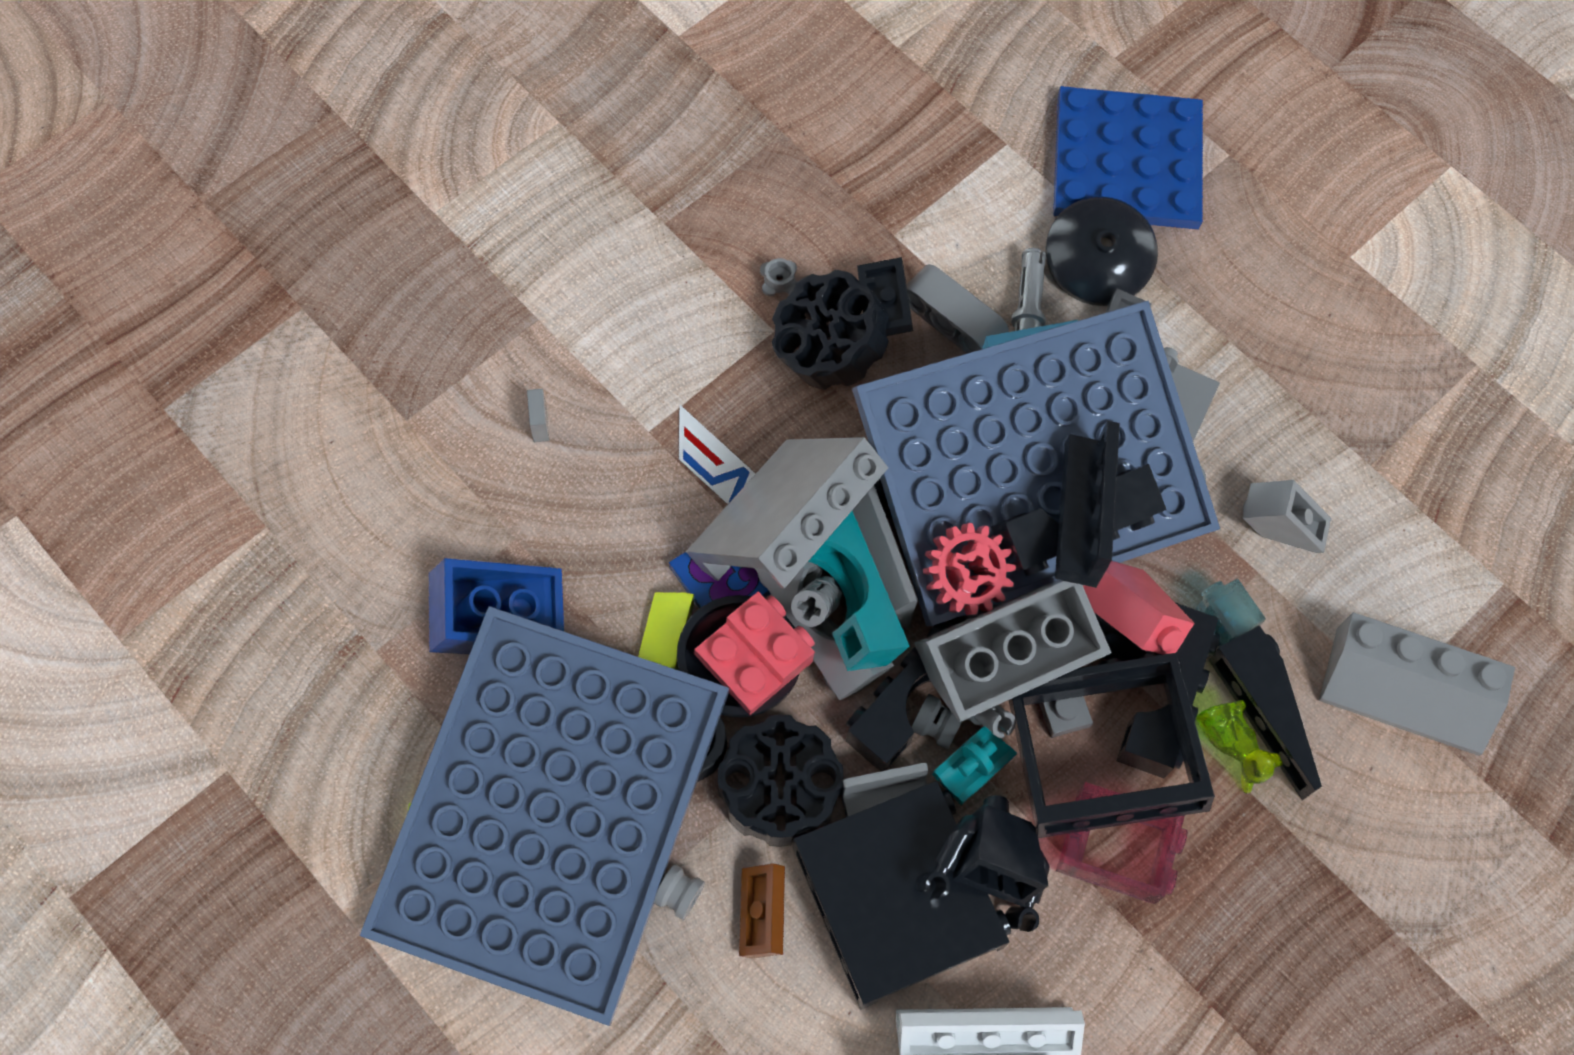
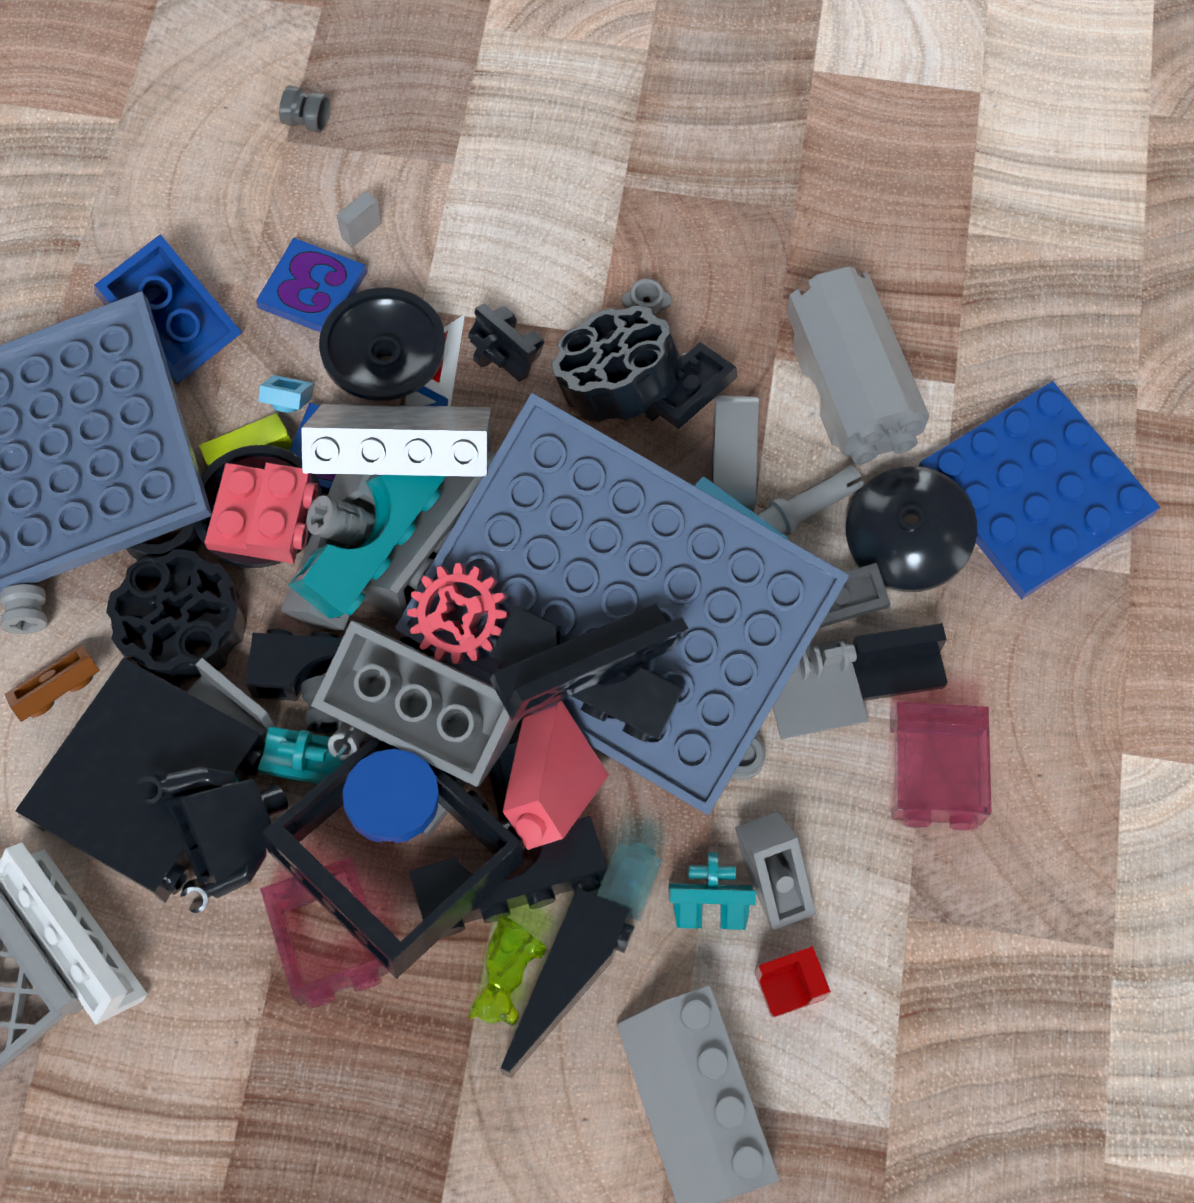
camera: 55 degrees right, 0 degrees up
(390, 387) = (304, 108): none -> dark grey wheel
(563, 491) = (309, 284): none -> blue tile
(648, 572) = (285, 393): none -> medium azure plate
(666, 452) = (379, 325): none -> black dish
(735, 394) = (500, 343): none -> black hips
(957, 182) = (856, 366): none -> light grey brick
(1077, 714) = (391, 796): none -> blue tile
(1195, 330) = (900, 661): none -> black panel
(1273, 564) = (733, 899): none -> teal hips
(1289, 360) = (941, 765): none -> clear pink panel
(1372, 563) = (792, 982): none -> red panel

